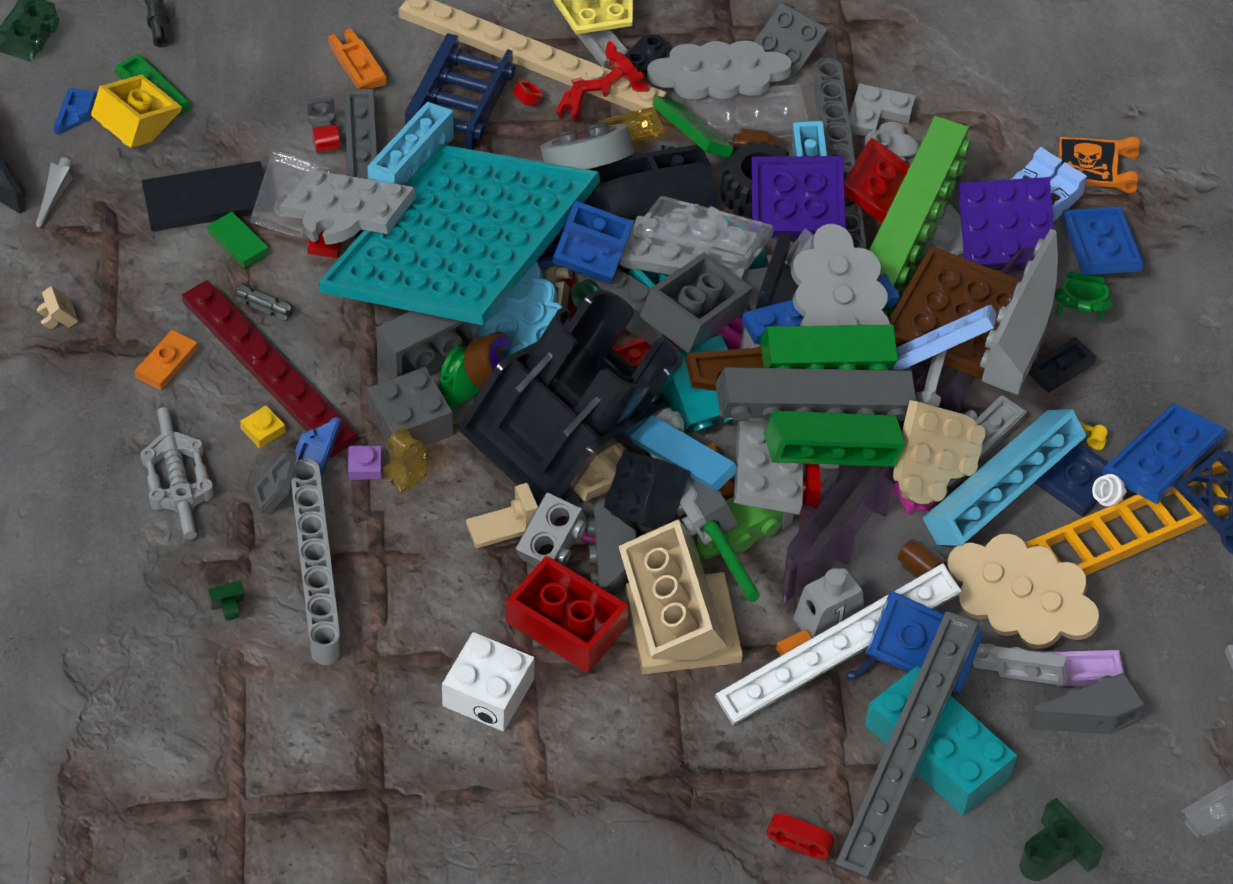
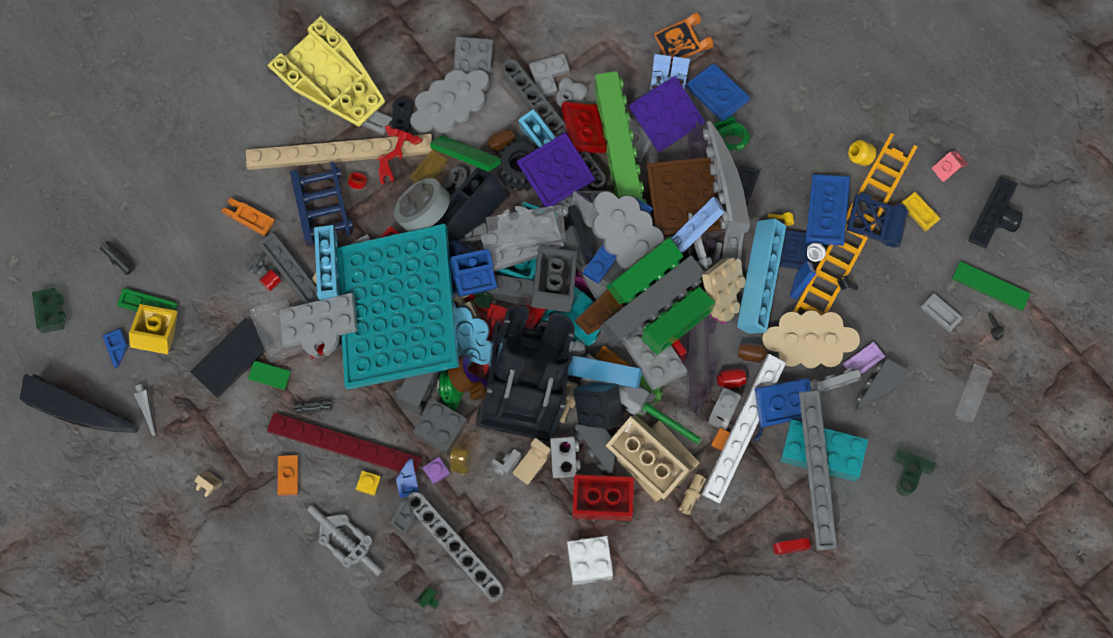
camera: 30 degrees left, 20 degrees up
(469, 504) = (510, 462): none -> light grey bracket
(701, 687) = (692, 494): none -> tan pin
(871, 577) = (731, 378): none -> red brick
(1064, 515) = (802, 279): none -> blue tile
(1125, 551) = (845, 283): none -> black hand

